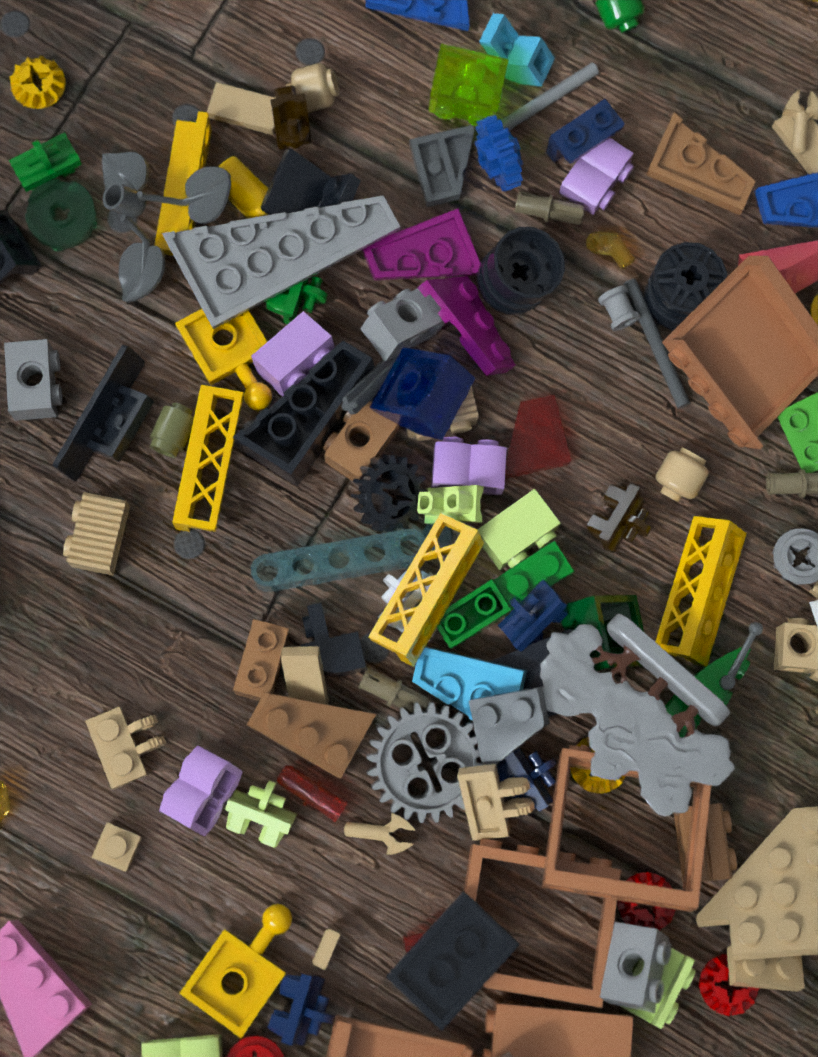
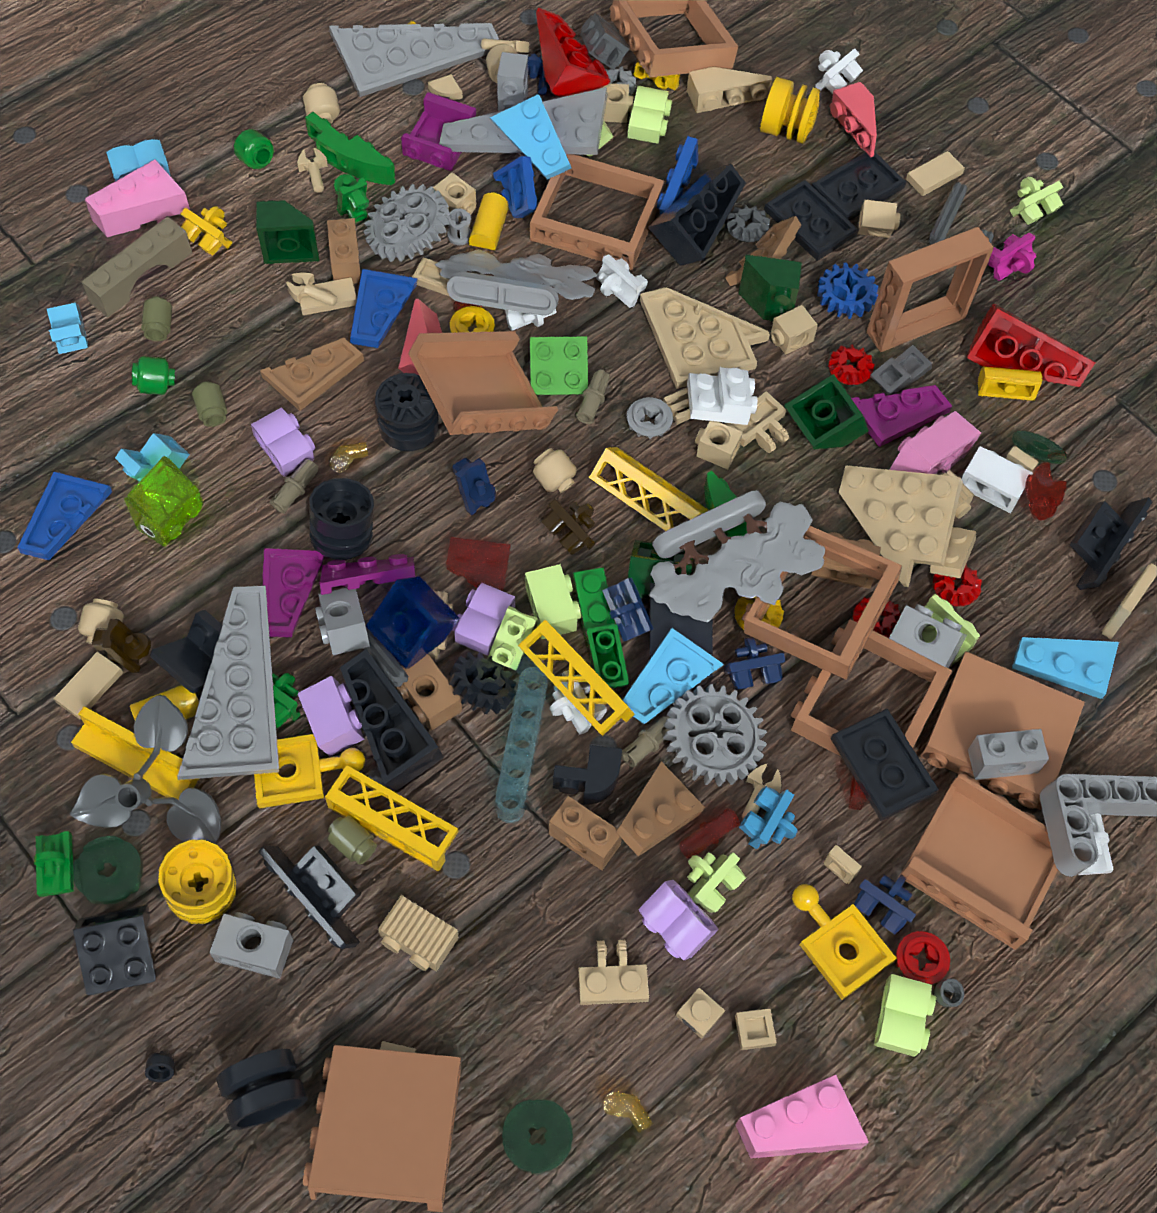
camera: 65 degrees left, 15 degrees down
(56, 286) = (193, 863): none -> yellow wheel
(116, 909) = (755, 1029): none -> tan plate
(304, 673) = (610, 797): tan tile -> none
(334, 849) = (762, 829): none -> dark azure hips
(442, 163) = (218, 549): dark grey wing -> none
(485, 802) = (762, 696): tan hinge -> none
(499, 153) = (234, 498): blue gear -> none
(507, 721) = (708, 654): wing -> none
(550, 96) = (201, 463): light grey bar -> none
(584, 133) = (248, 434): dark blue bracket -> none
(612, 78) = (210, 404): none -> olive brick
(619, 308) = (401, 466): light grey bush -> none
(622, 393) = (474, 484): none -> dark blue hips
(655, 341) = (440, 453): dark grey bar -> none
(728, 682) = (730, 493): dark grey hinge -> none

